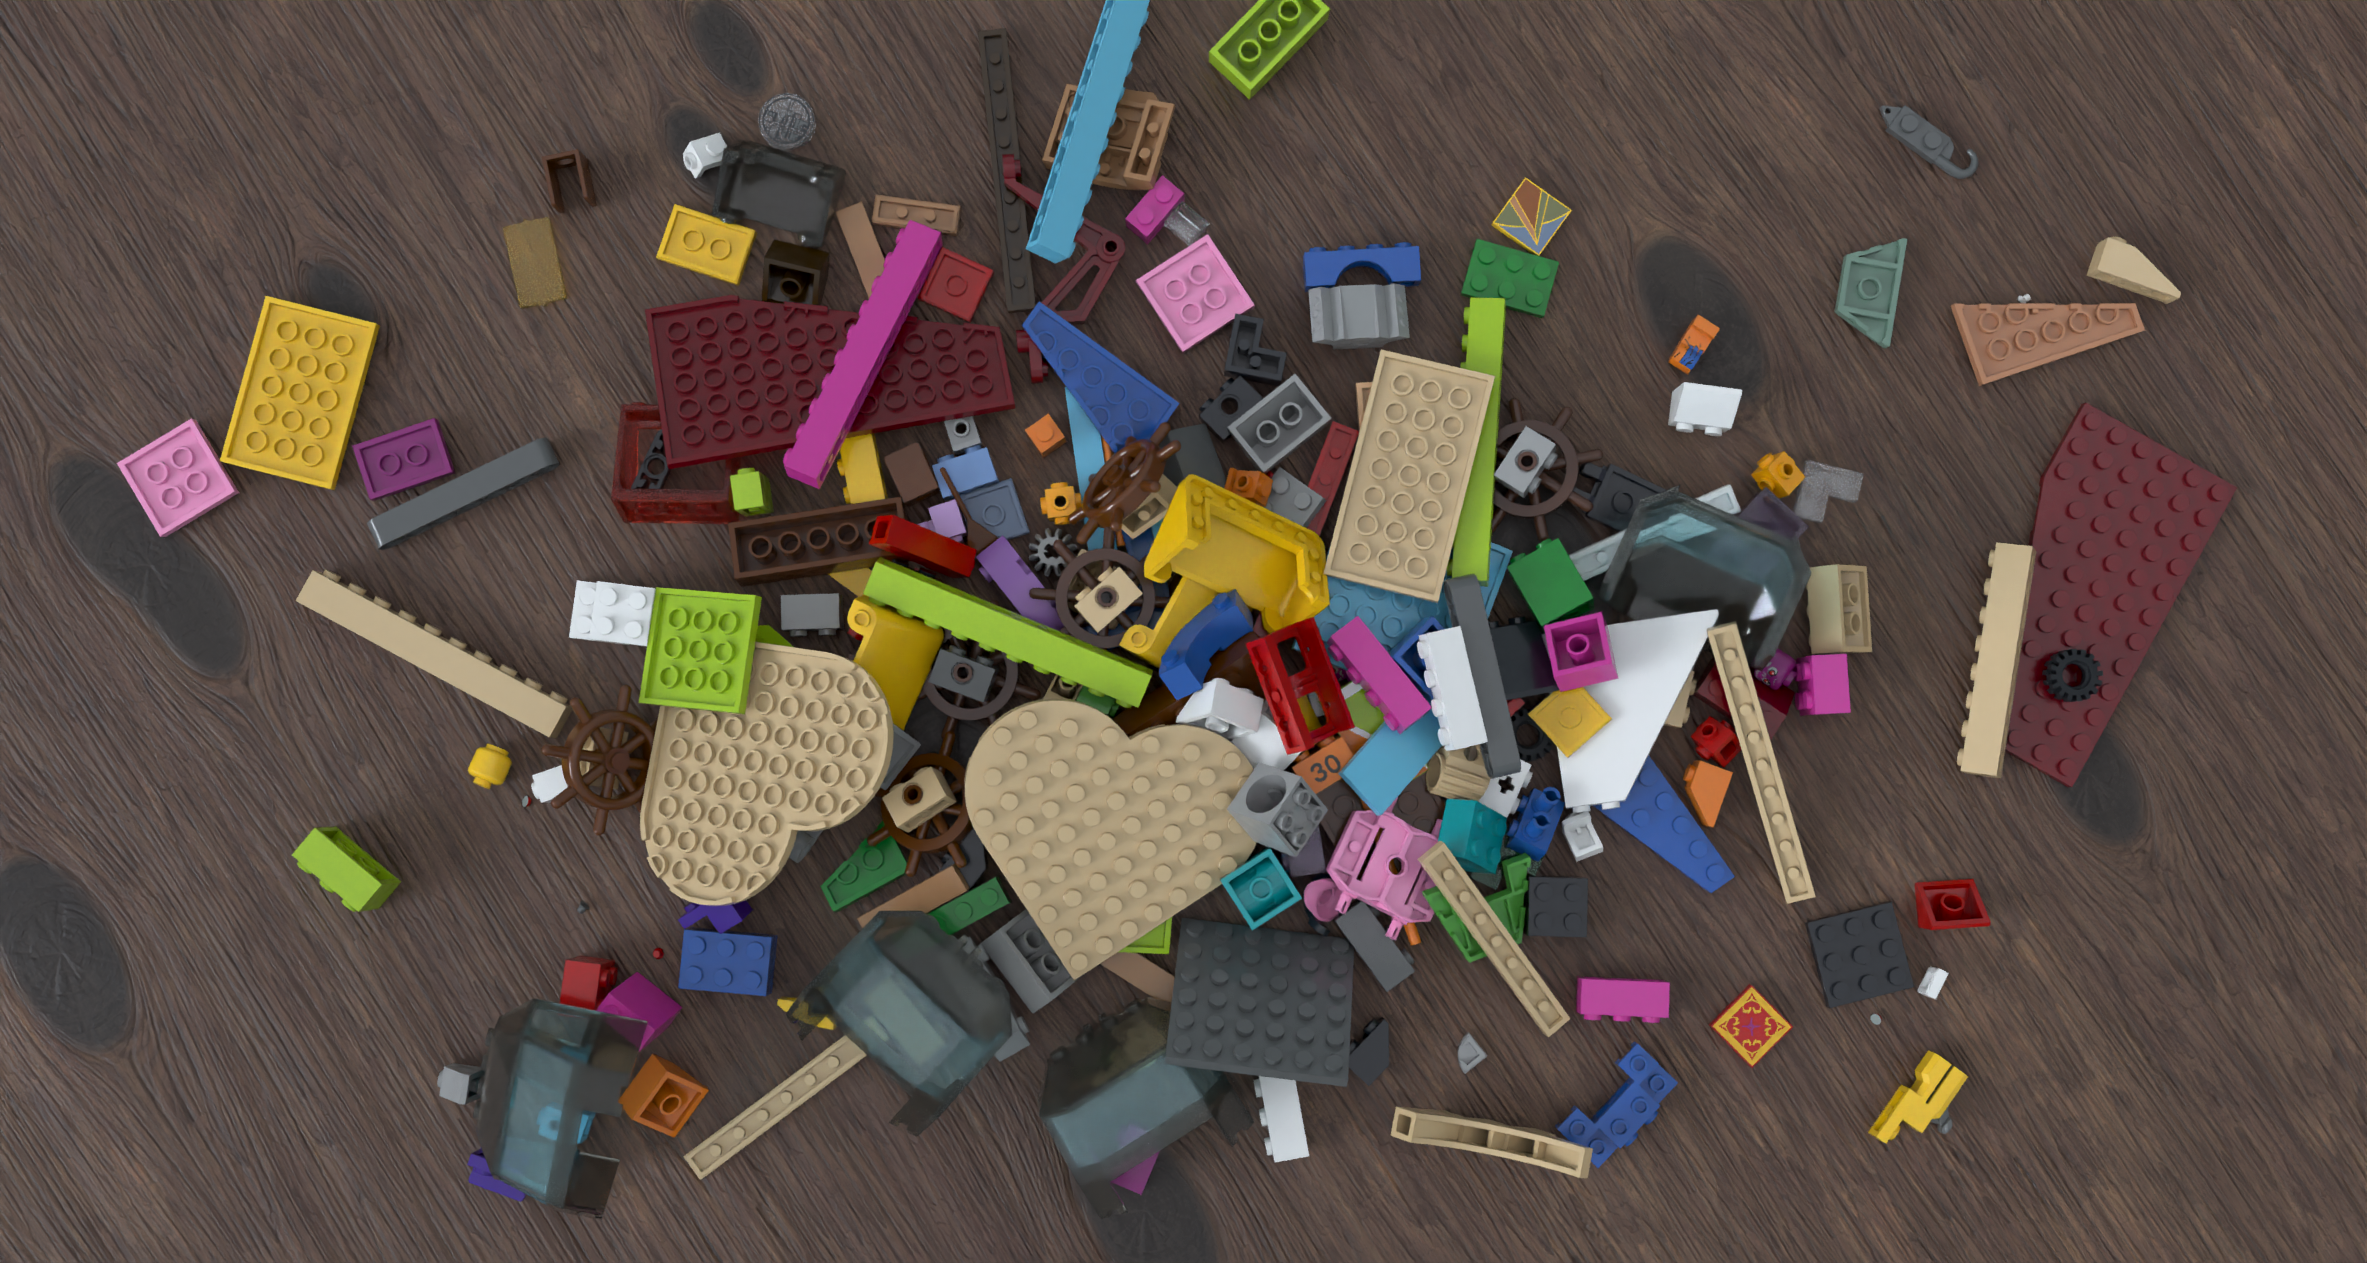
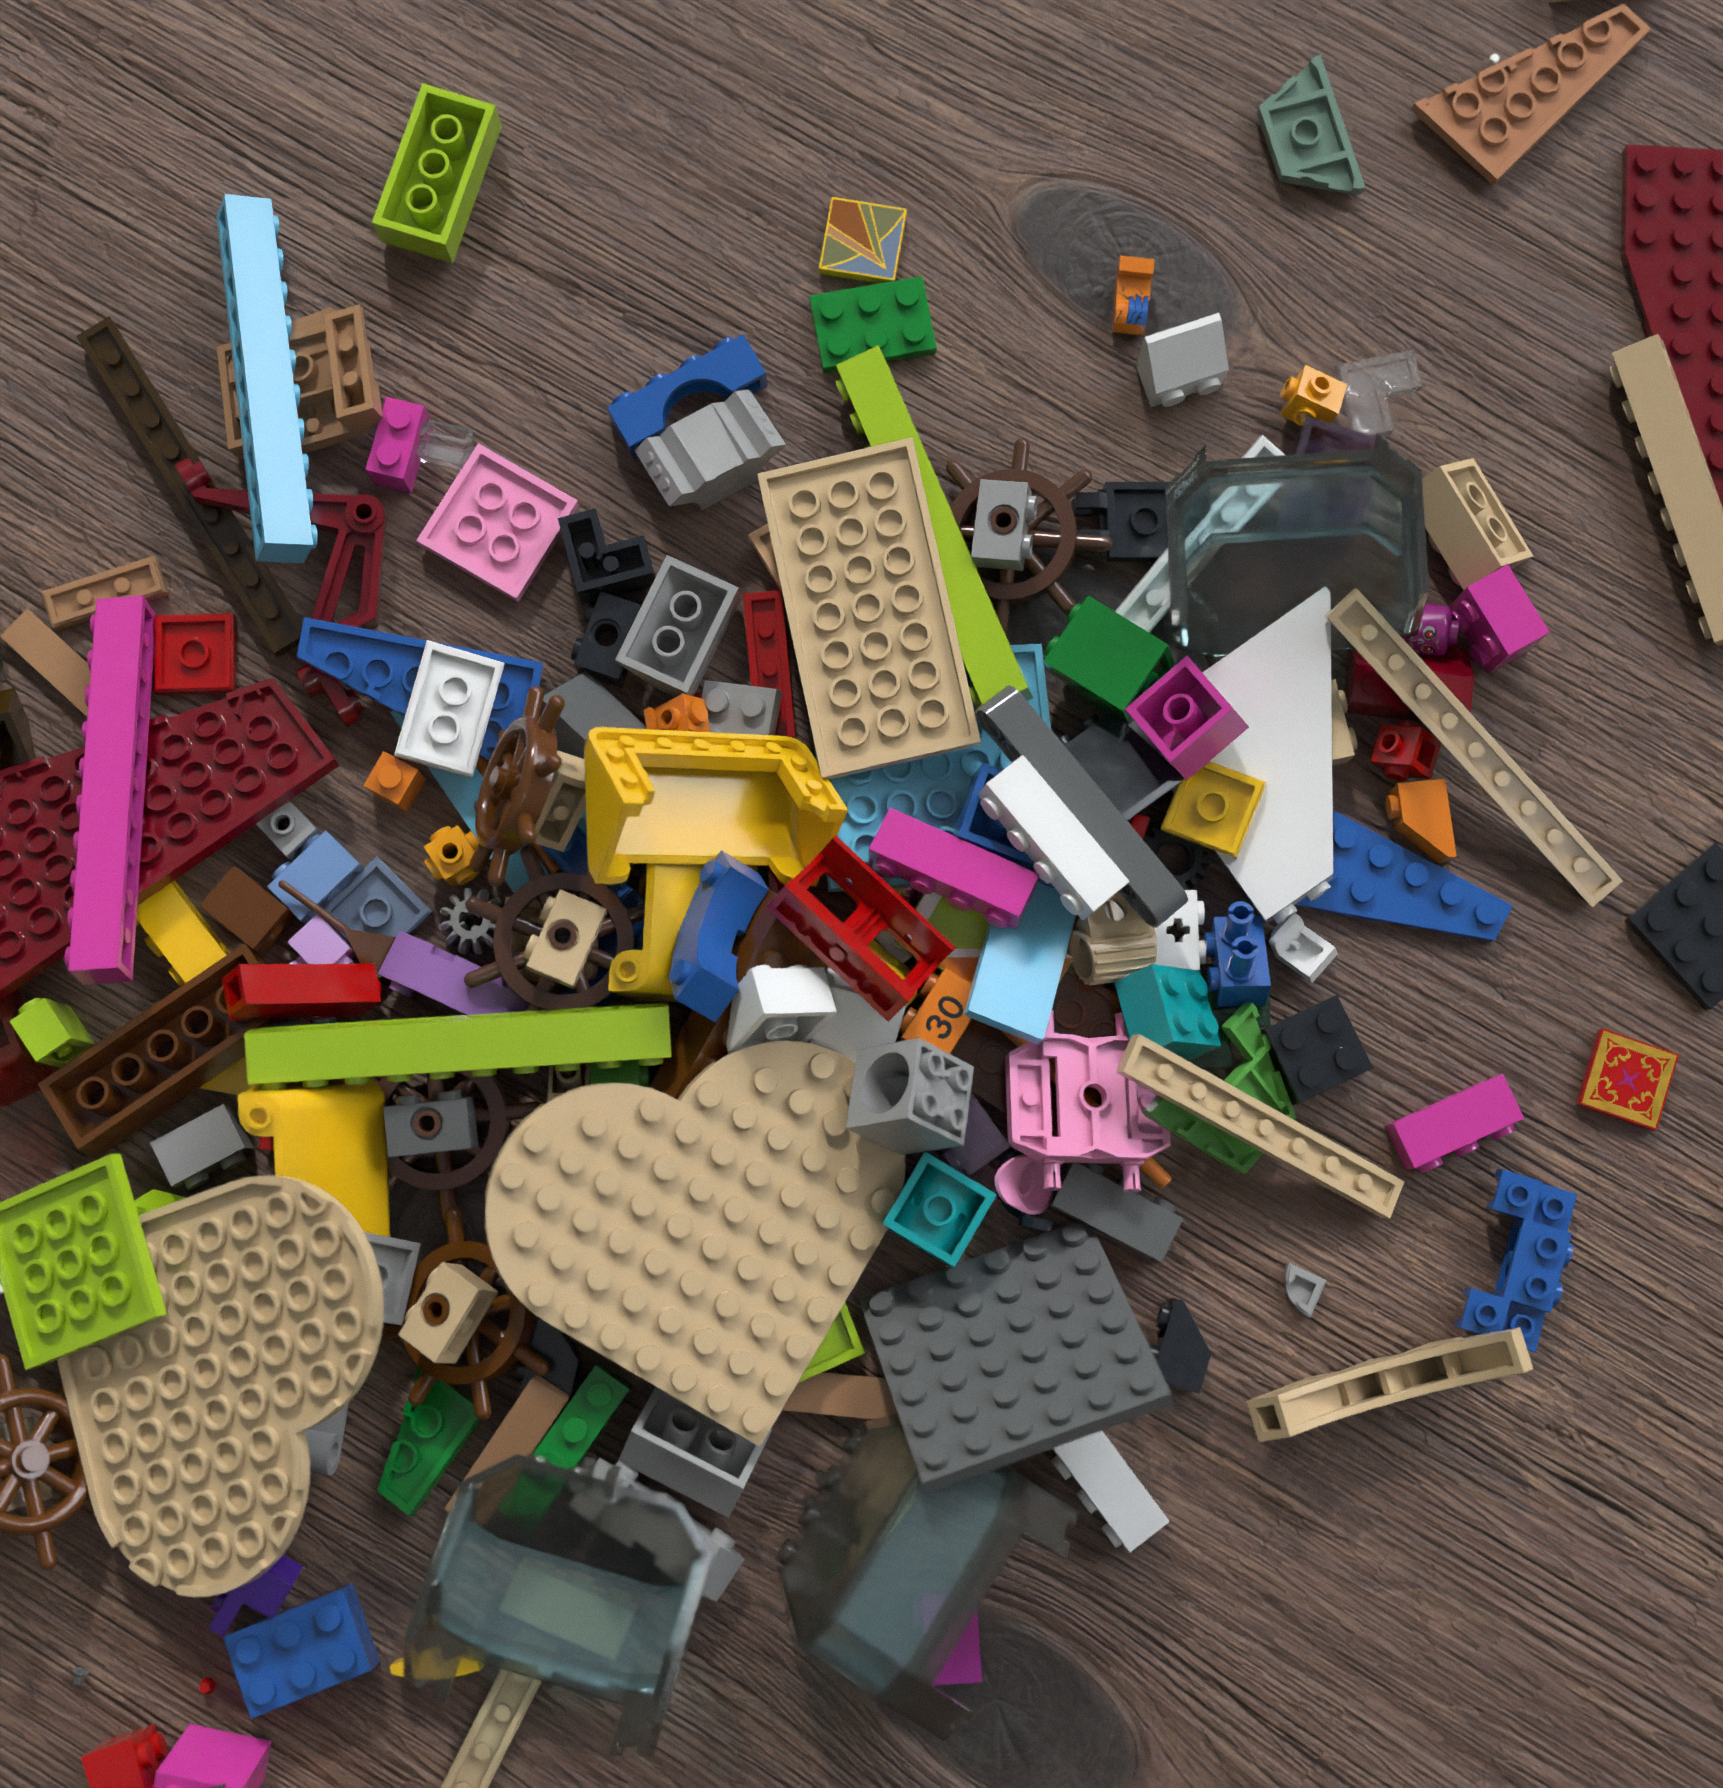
camera: 30 degrees left, 5 degrees down
(1104, 406) = (449, 709): none -> white tile

